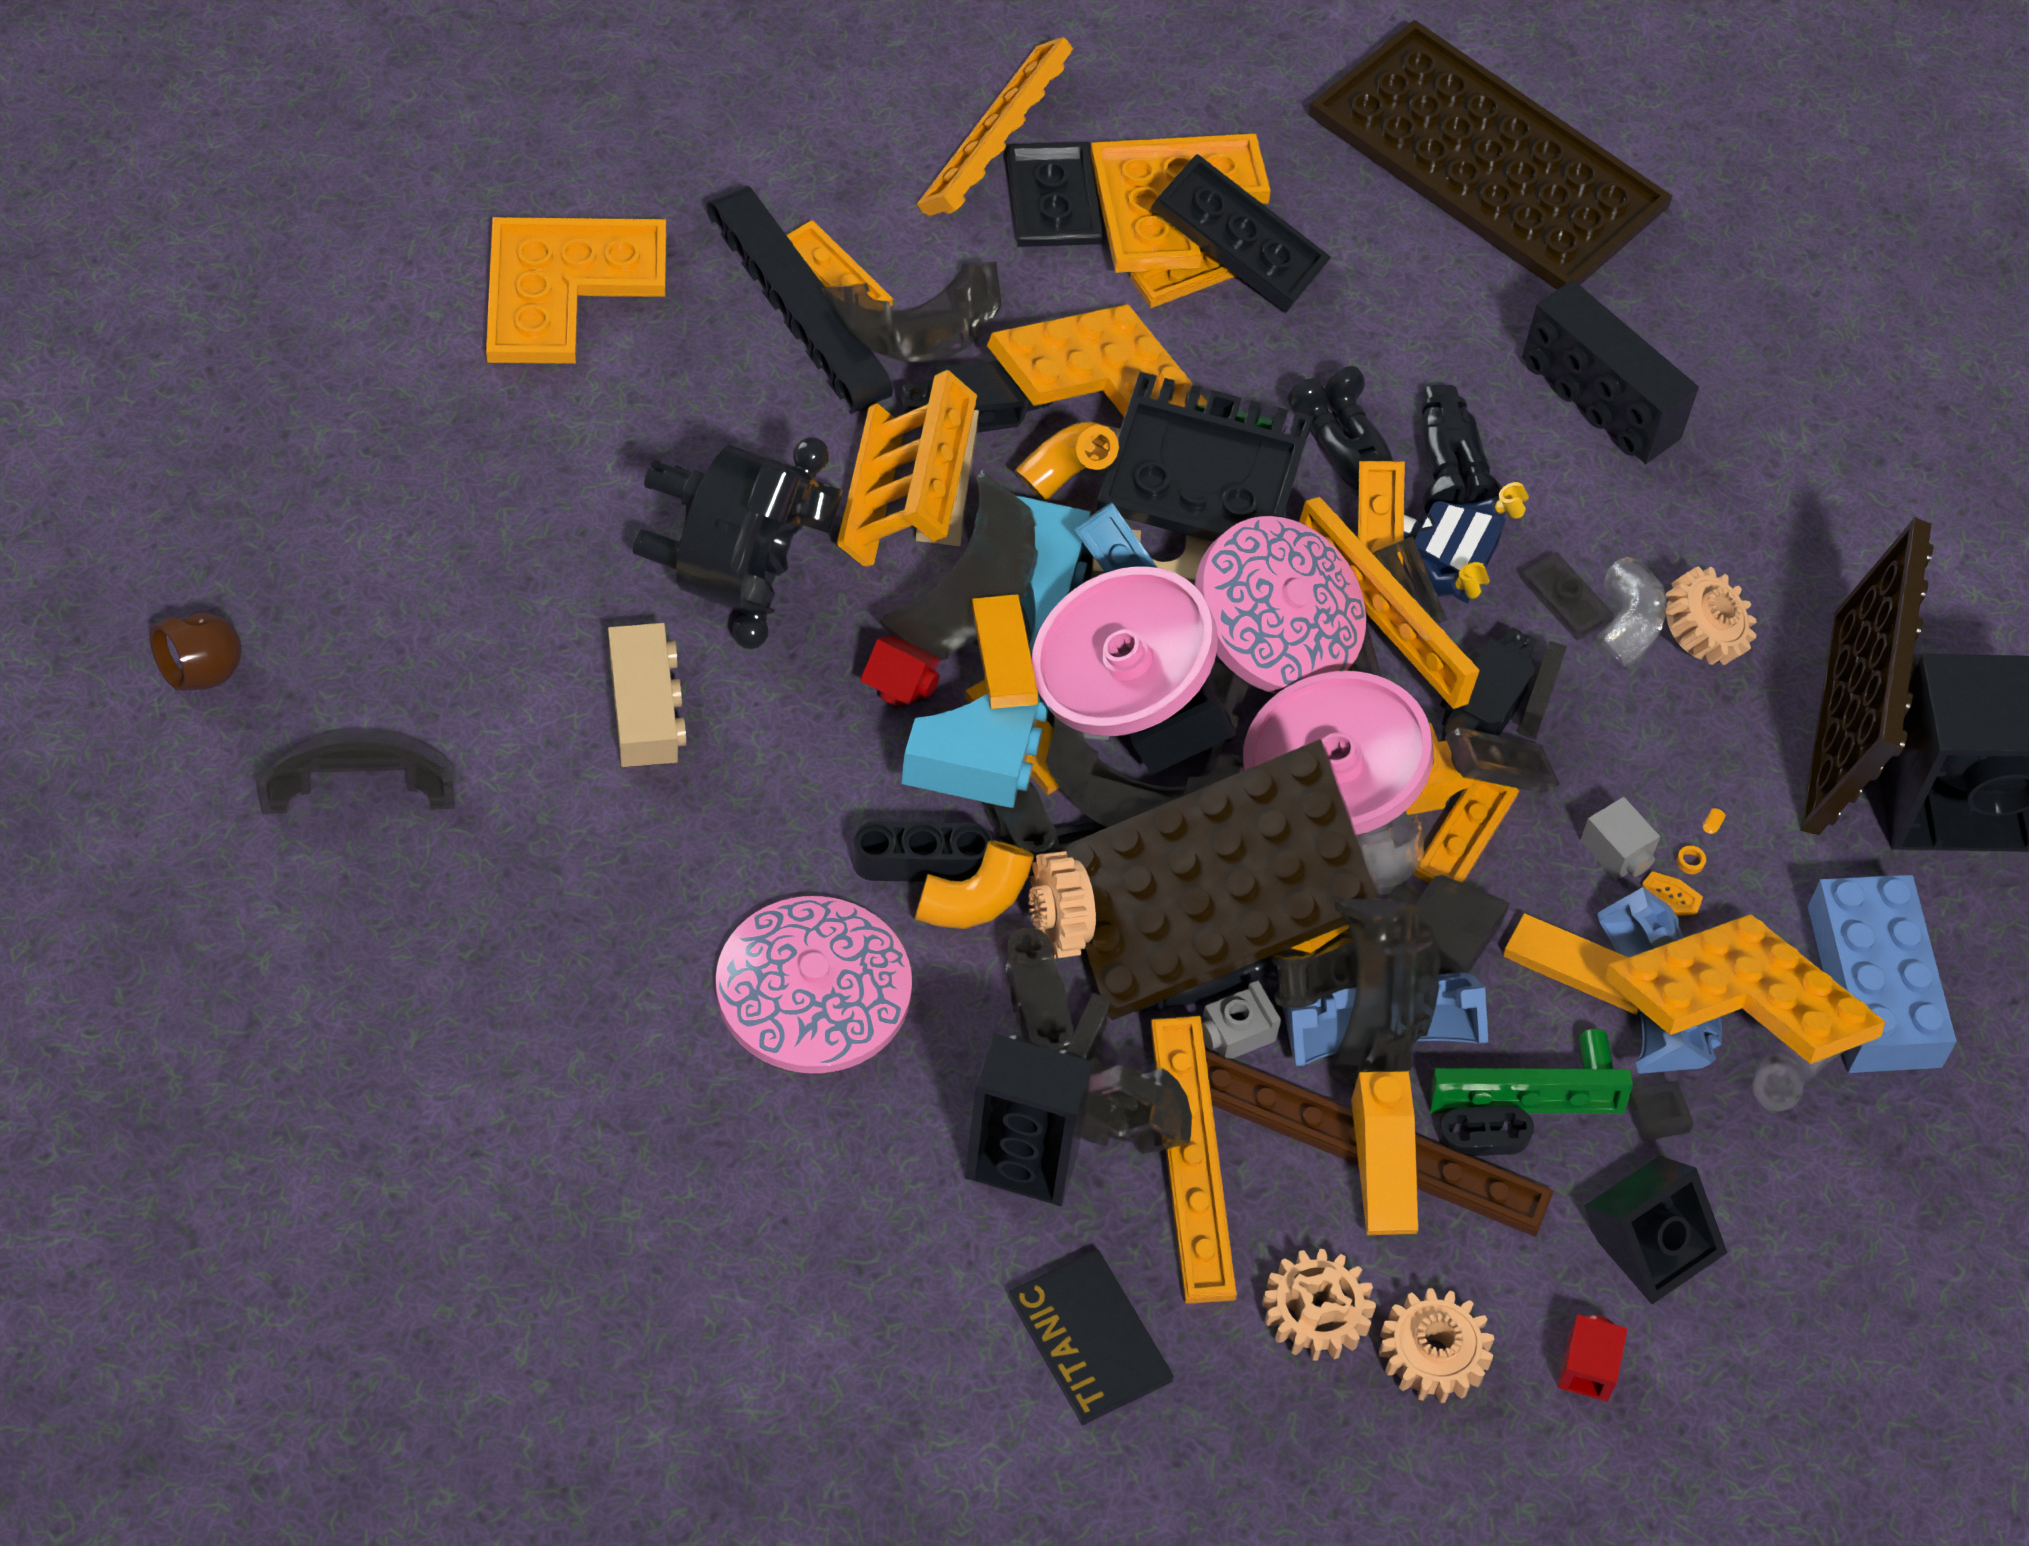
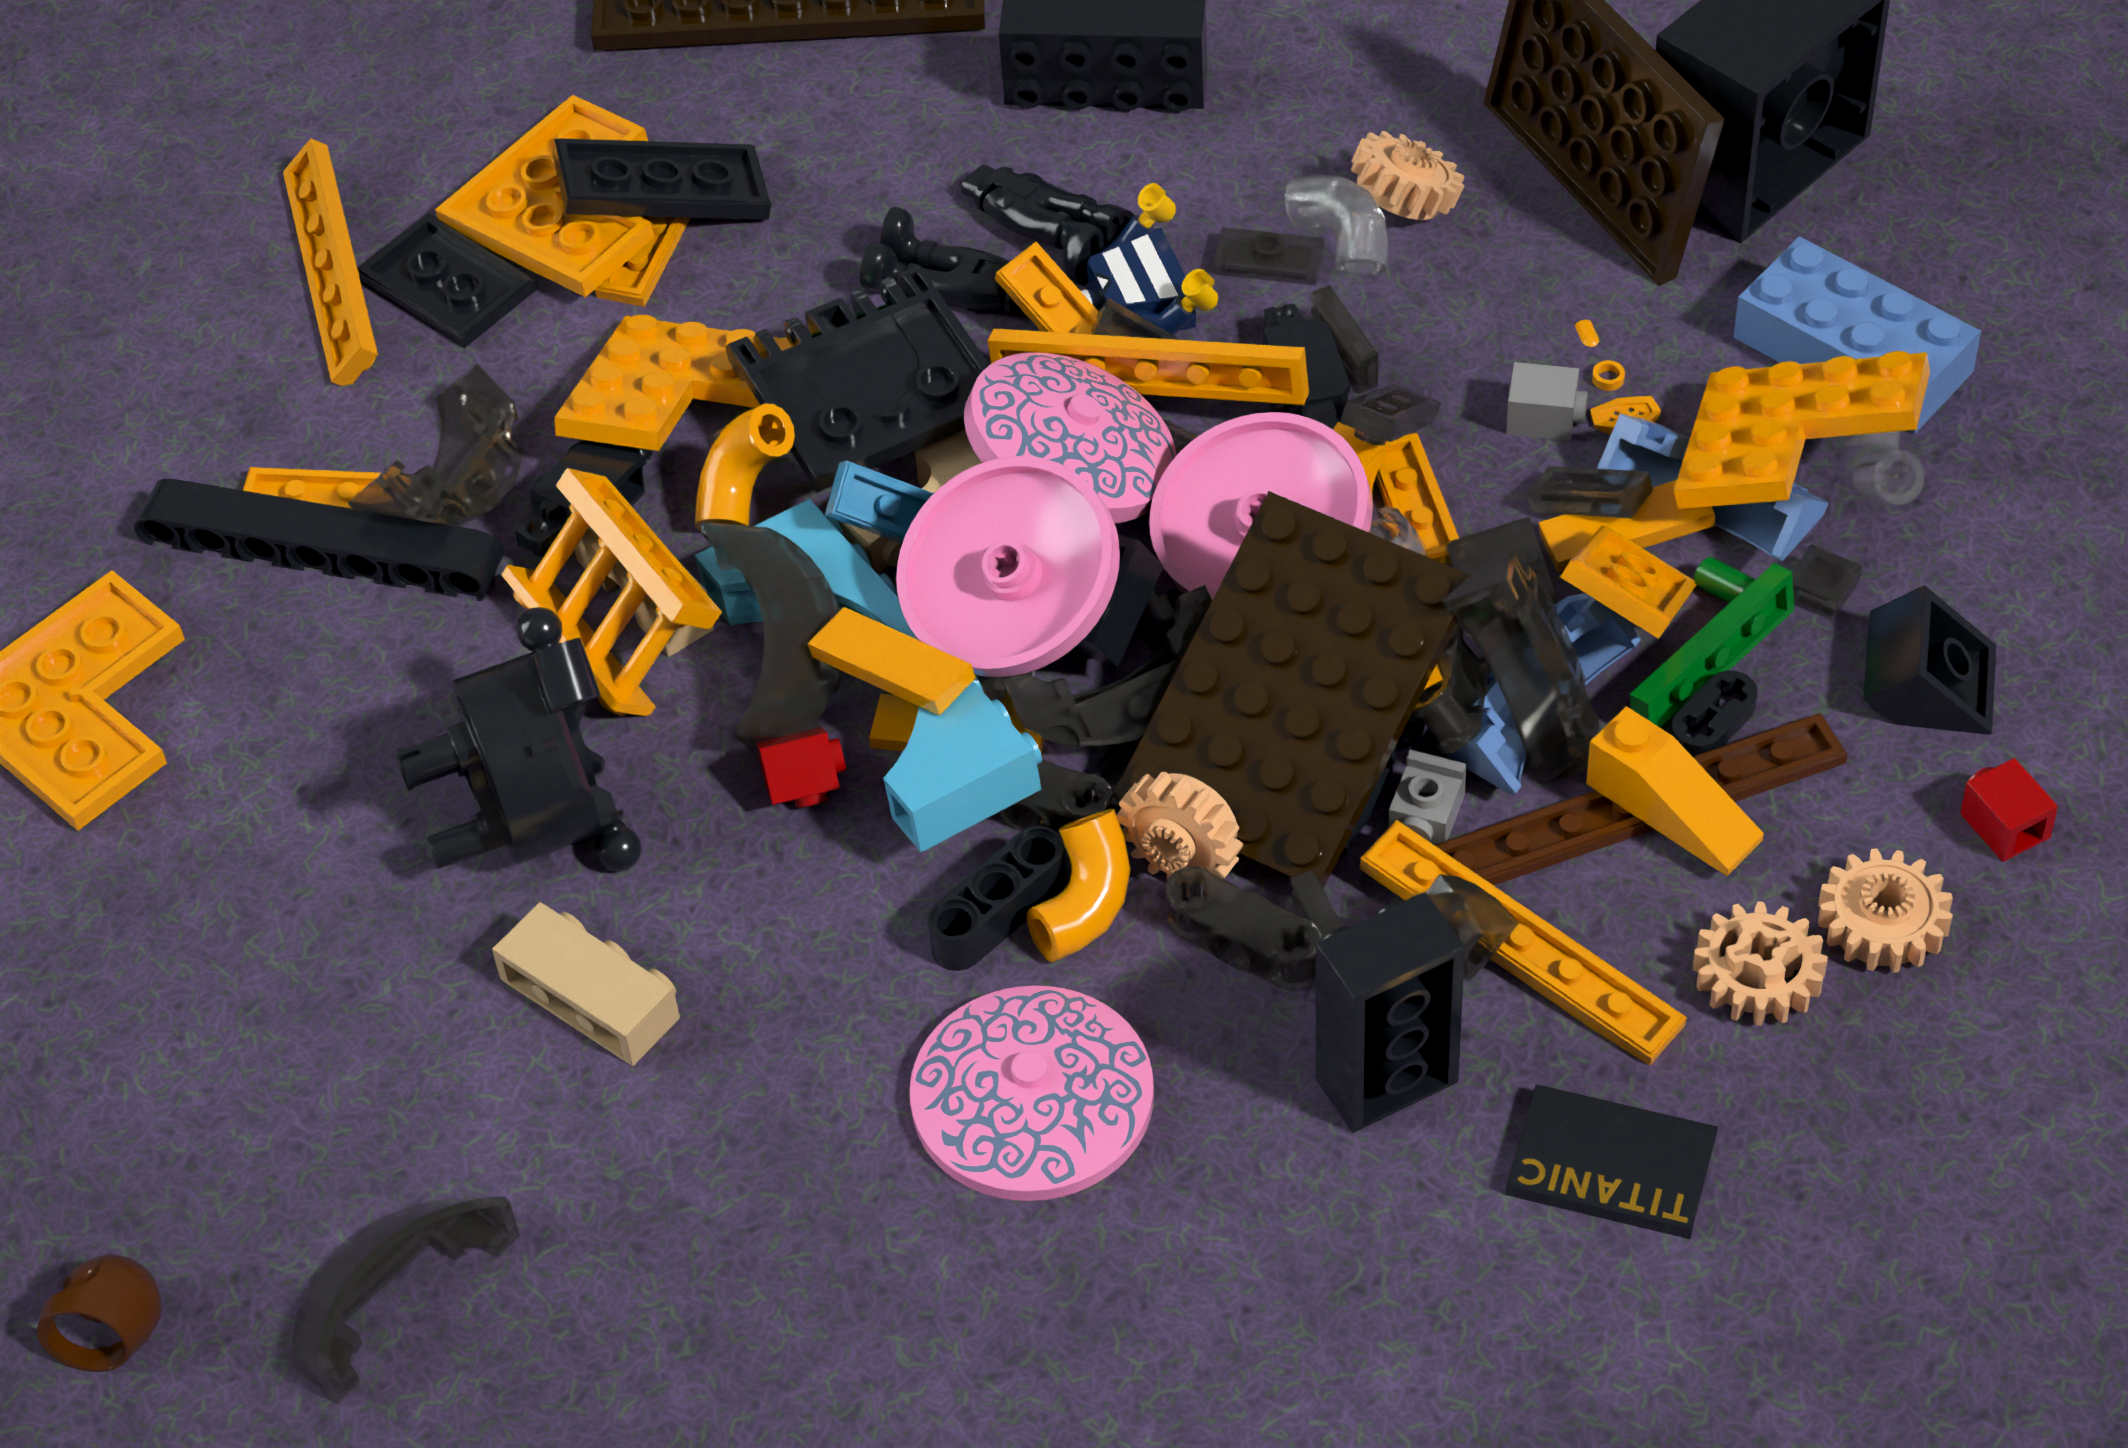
camera: 35 degrees left, 5 degrees down
(1515, 997) = (1629, 580): none -> light orange tile
(1576, 922) = (1590, 491): none -> clear smoke tile

